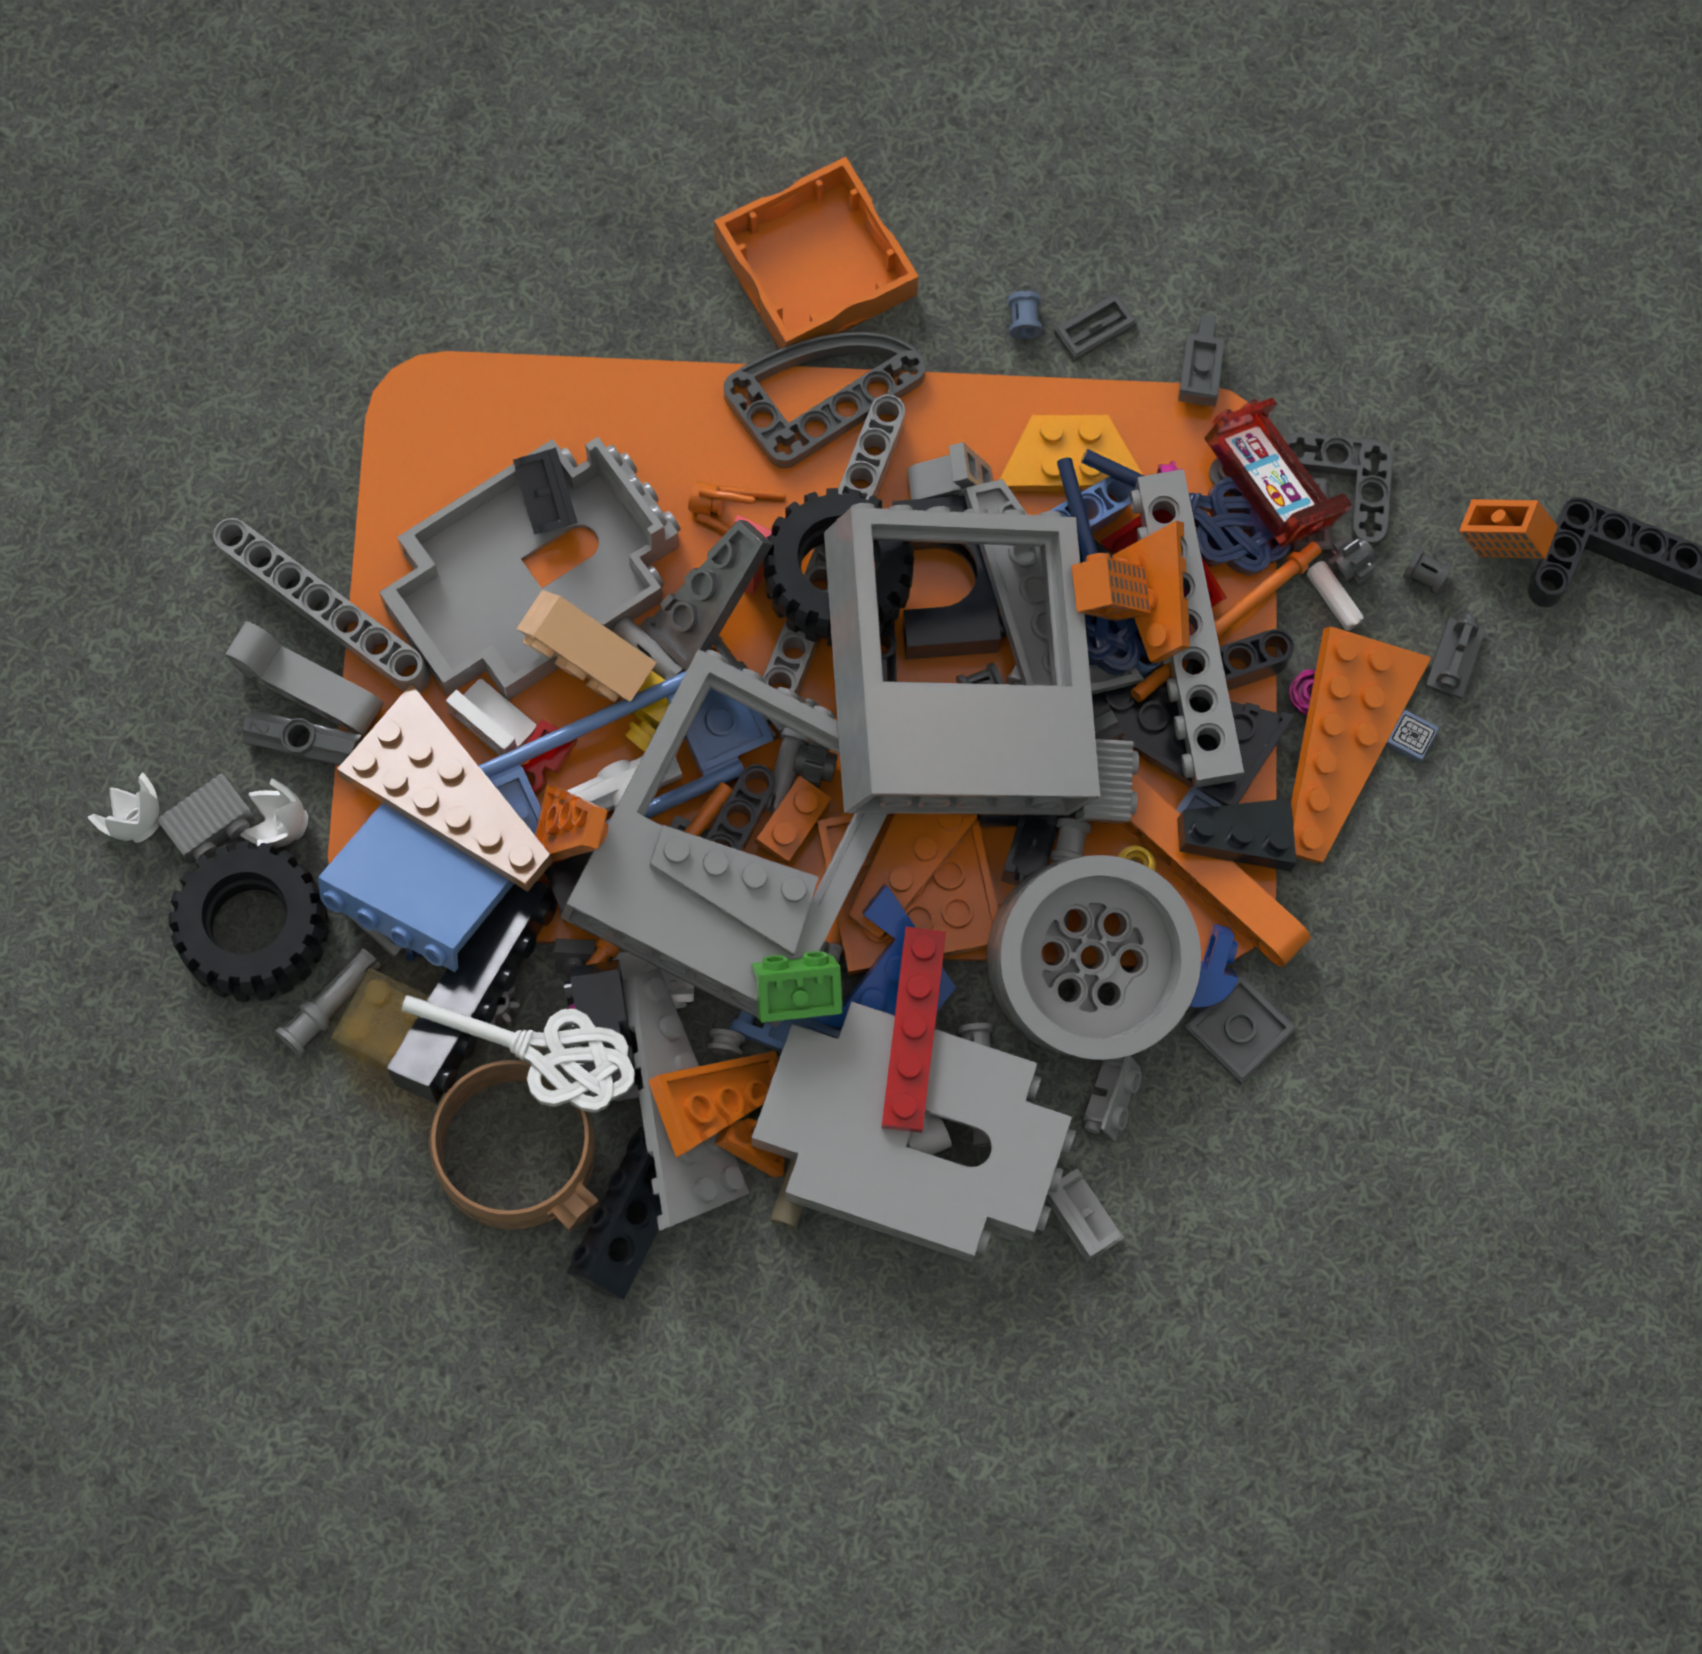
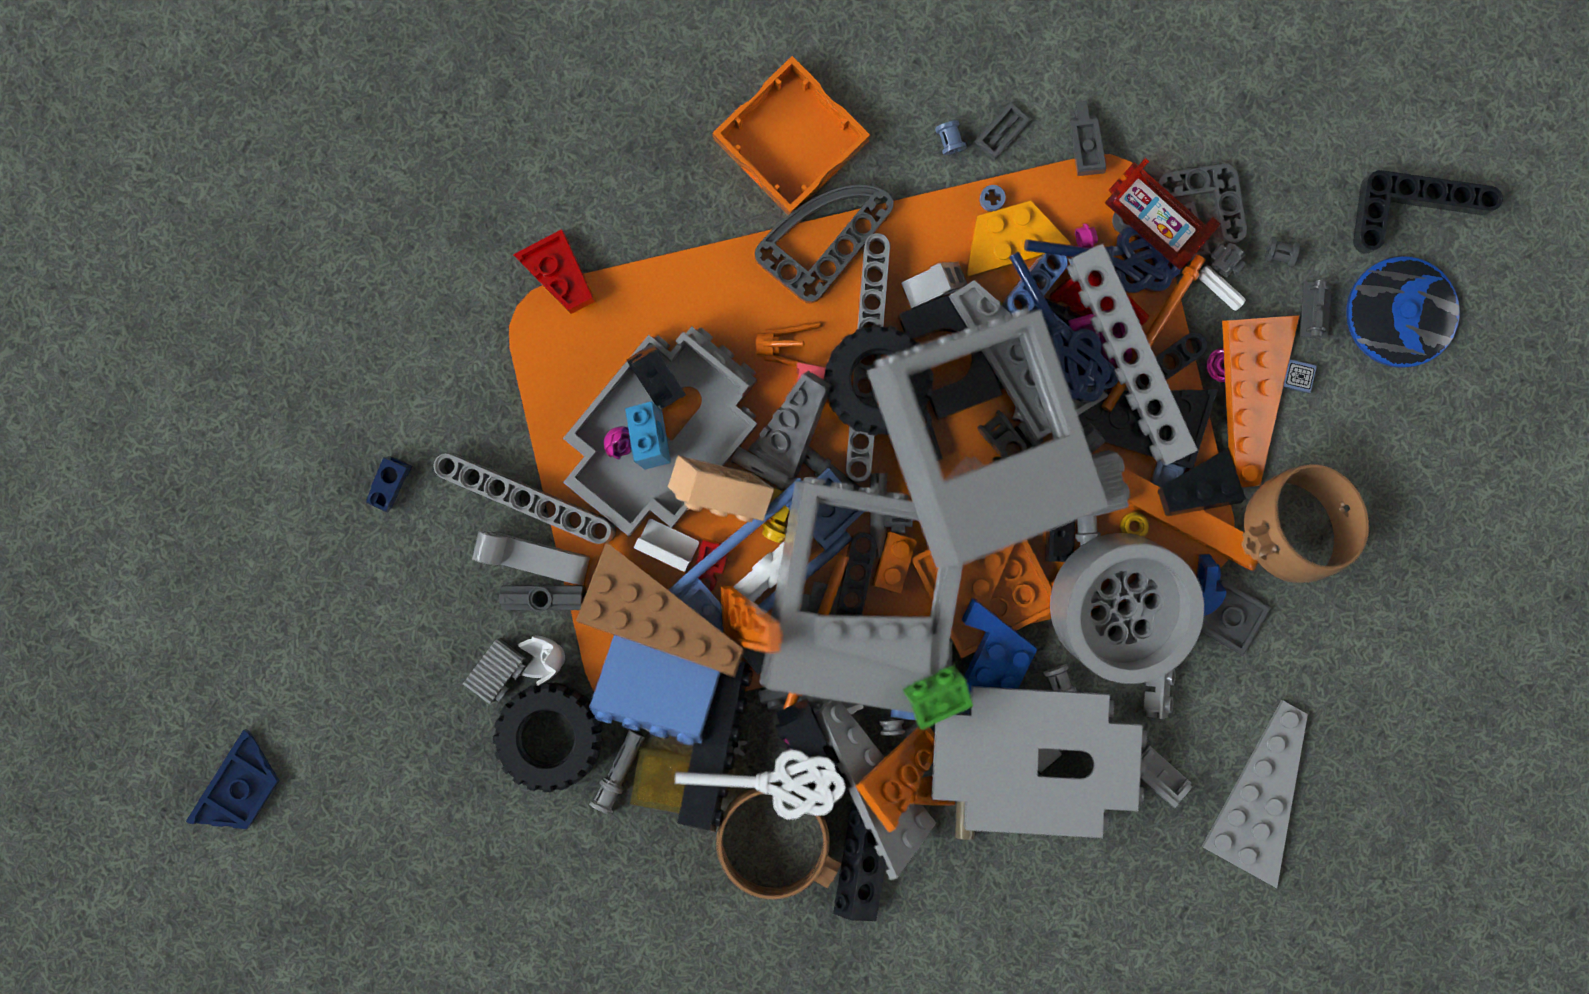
camera: 10 degrees left, 15 degrees up
(132, 814) = (445, 682): white piece -> none
(146, 541) = (388, 483): none -> dark blue leg
(459, 337) = (557, 270): none -> red wing
(470, 562) = (617, 442): none -> dark pink plate
(511, 562) = (648, 435): none -> dark azure brick
(913, 1030) = (1021, 696): red plate -> none
(1061, 388) = (998, 191): none -> sand blue bush
(1110, 587) = (1077, 352): orange brick -> none
(1167, 626) = (1104, 337): orange wing -> none
(1207, 1304) = (1258, 810): none -> light grey wing
(1329, 951) = (1334, 493): none -> medium nougat cylinder
(1508, 528) = (1334, 209): orange brick -> none
(1573, 692) = (1402, 312): none -> dish

